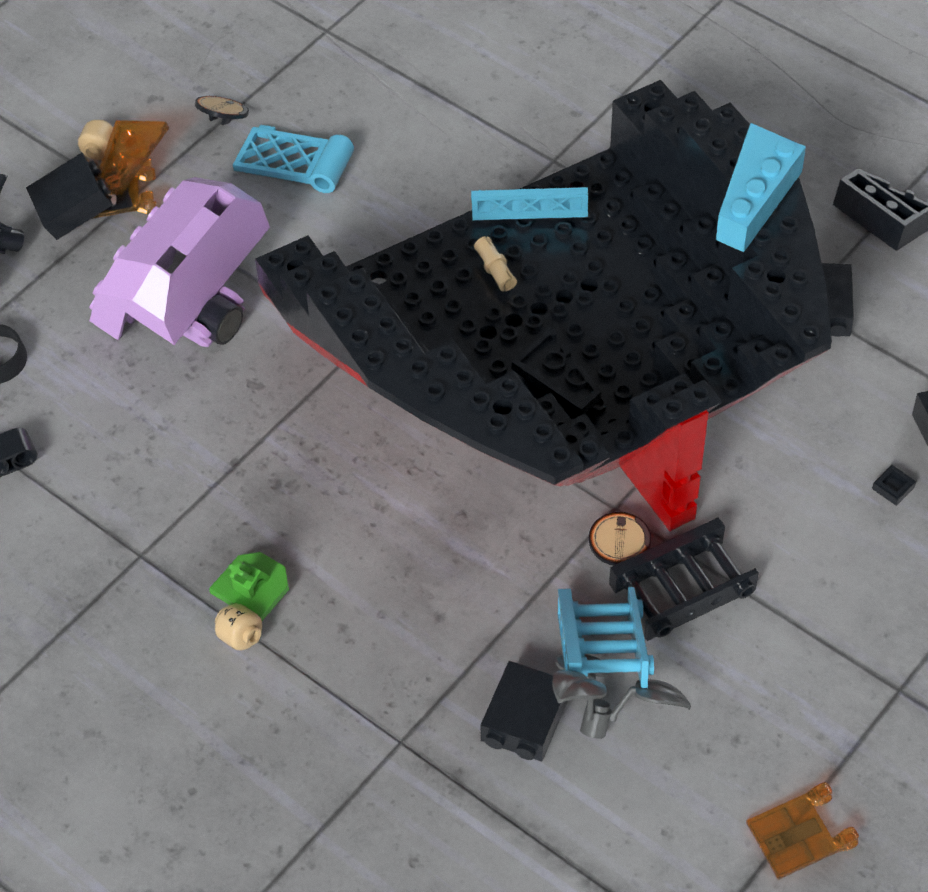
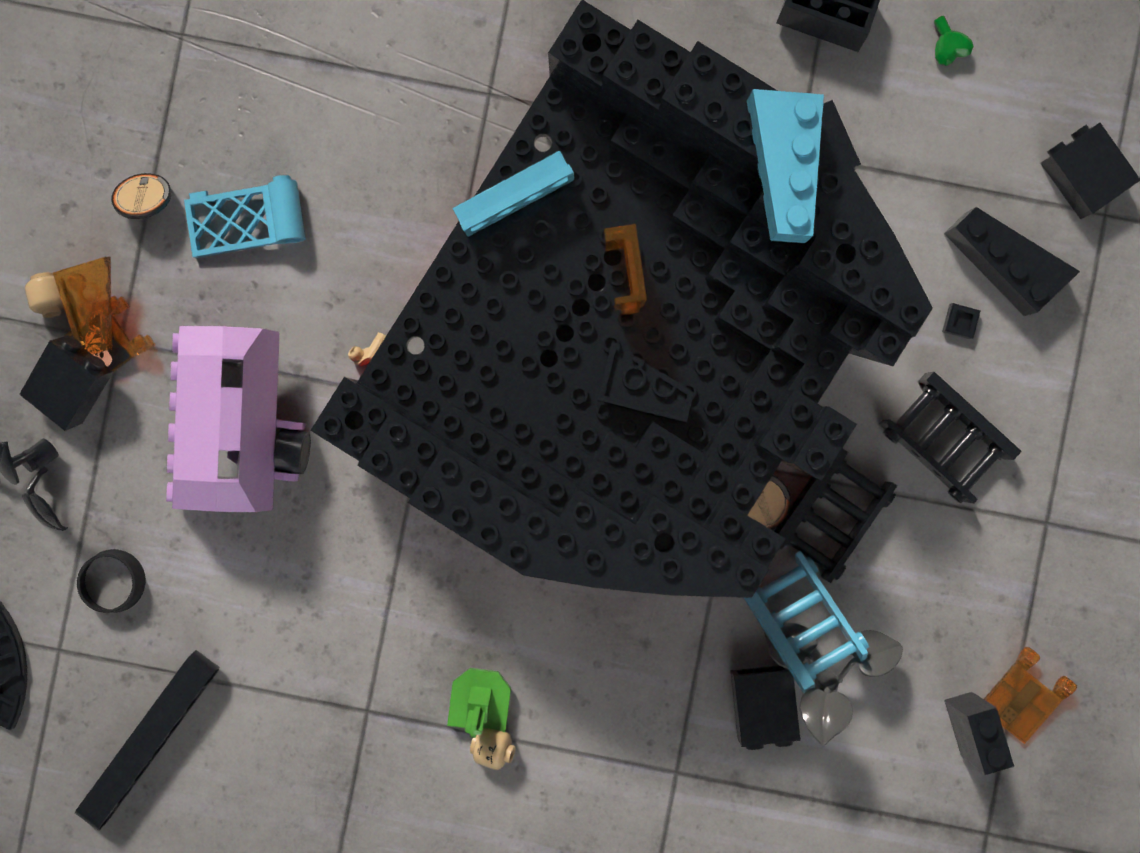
camera: 30 degrees left, 35 degrees up
(495, 264) = (520, 286): tan pin -> none
(588, 294) = (626, 238): none -> clear orange panel
(729, 815) = (979, 733): none -> black brick
(852, 544) = (977, 428): none -> black fence

